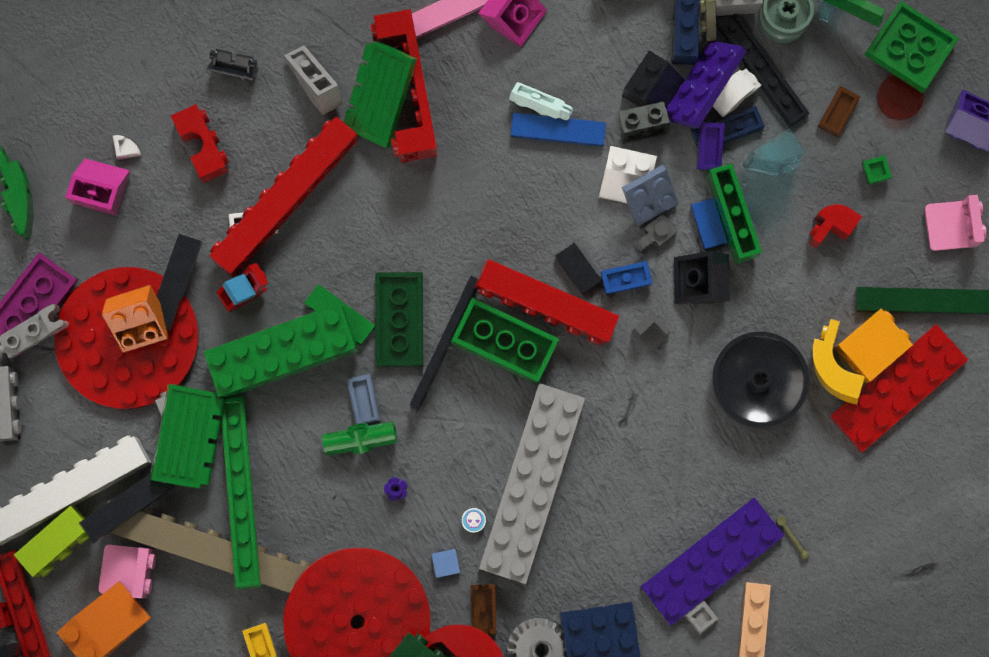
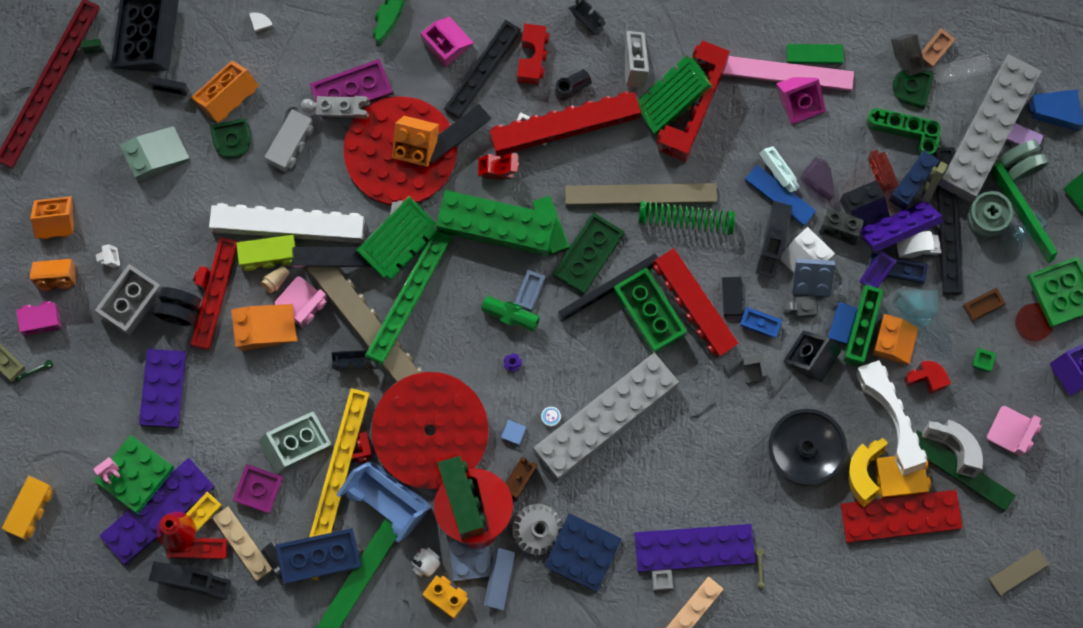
camera: 35 degrees right, 5 degrees down
(82, 565) = (275, 279): none -> tan cone
(125, 147) = (480, 26): white tile -> none
(157, 193) = (482, 69): none -> black tile
(216, 603) = (350, 359): none -> black hinge
(239, 289) = (495, 164): dark azure tile -> none
(264, 147) = (573, 84): none -> black piece
(412, 221) = (635, 194): none -> dark tan tile
(428, 237) = (731, 219): none -> green piece
(584, 180) = (774, 239): none -> black slope
(588, 85) = (819, 178): none -> clear purple slope
(646, 36) = (882, 170): none -> clear red bracket
(773, 207) = (895, 339): none -> orange slope
(786, 266) = (876, 384): none -> white arch
(914, 272) = (961, 442): none -> light grey arch

